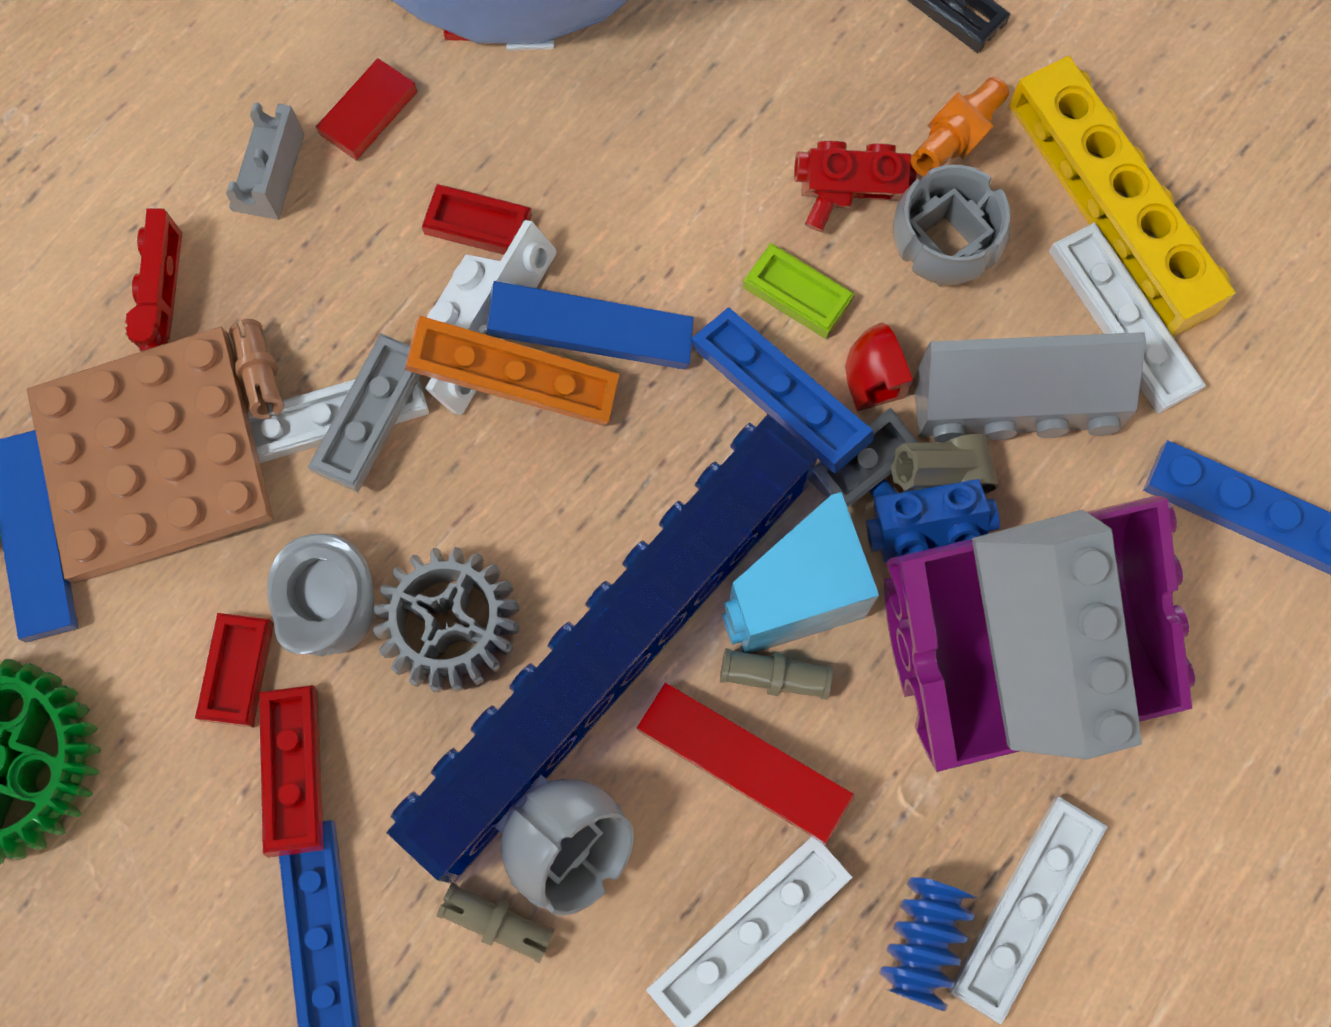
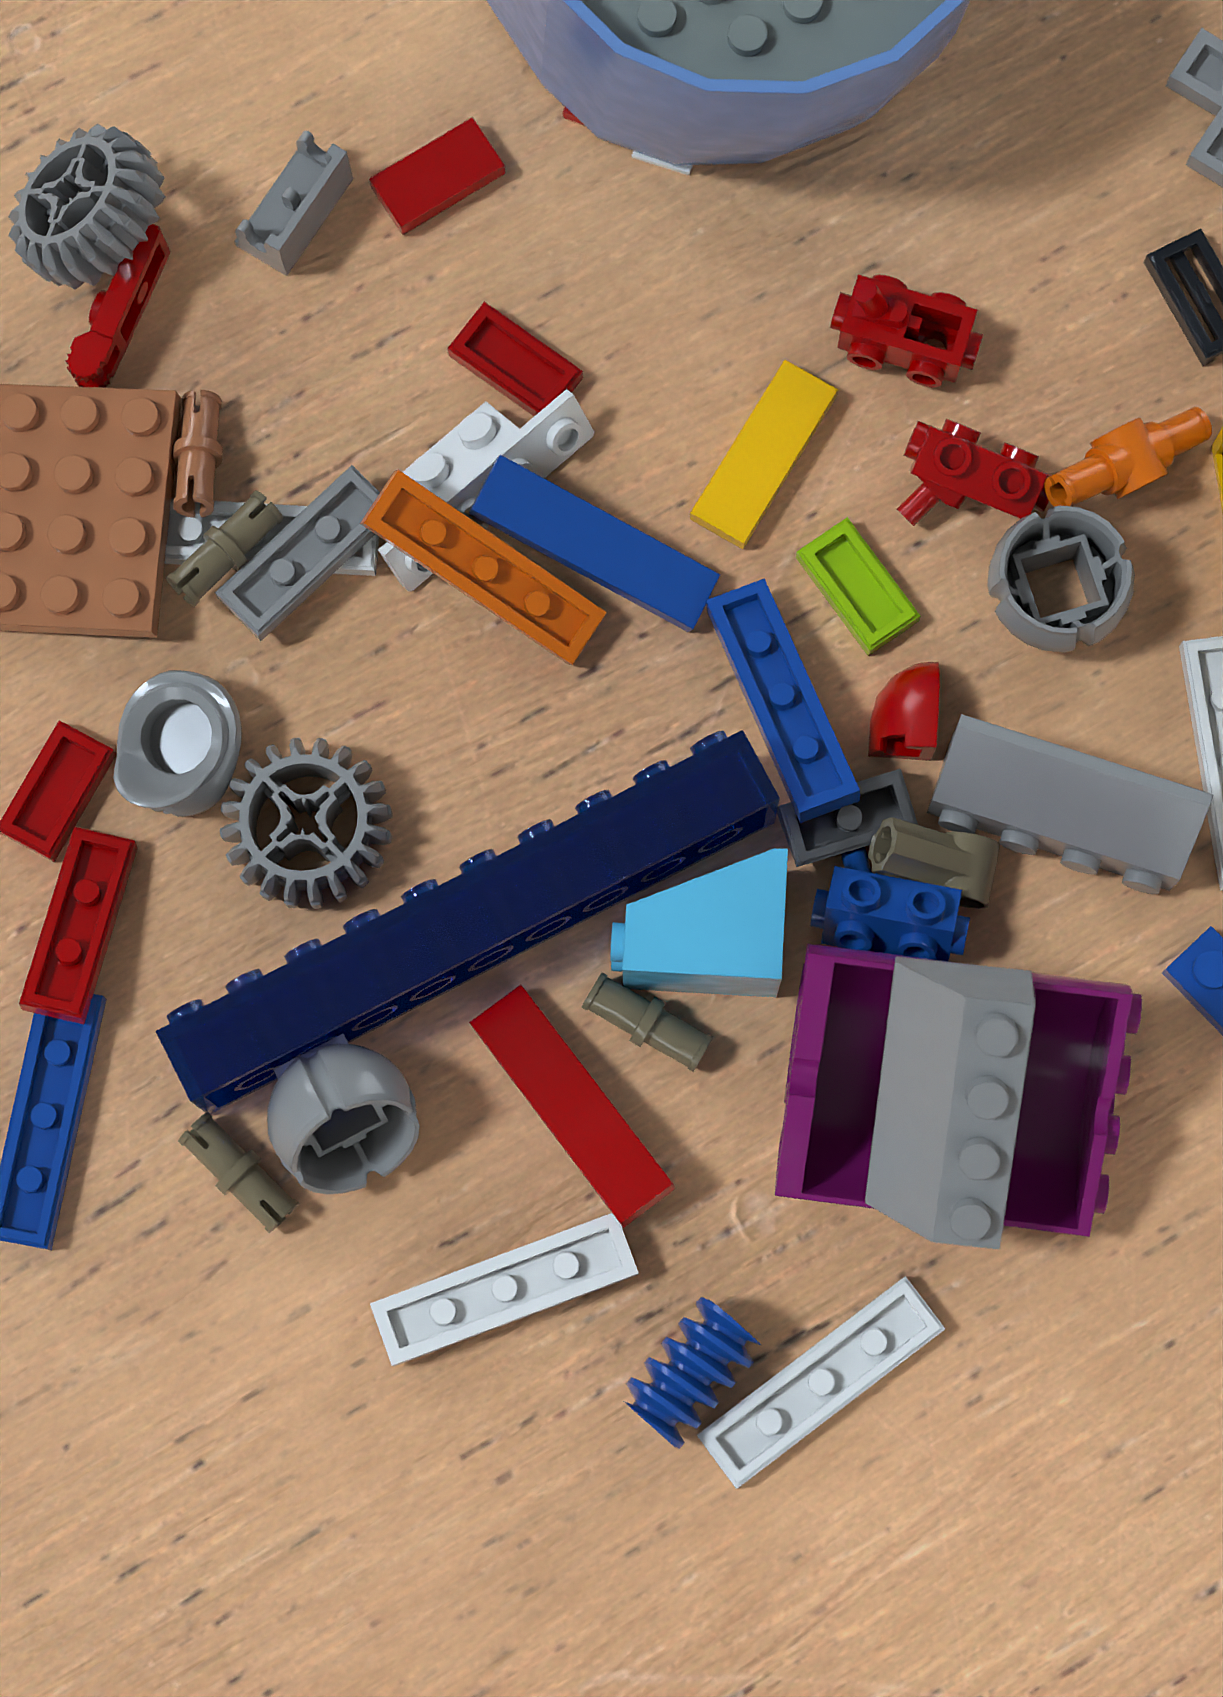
camera: 25 degrees right, 5 degrees up
(101, 213) = (86, 206): none -> light grey gear
(303, 430) = (225, 548): none -> dark tan pin
(689, 221) = (763, 454): none -> yellow tile
(759, 95) = (892, 324): none -> red brick

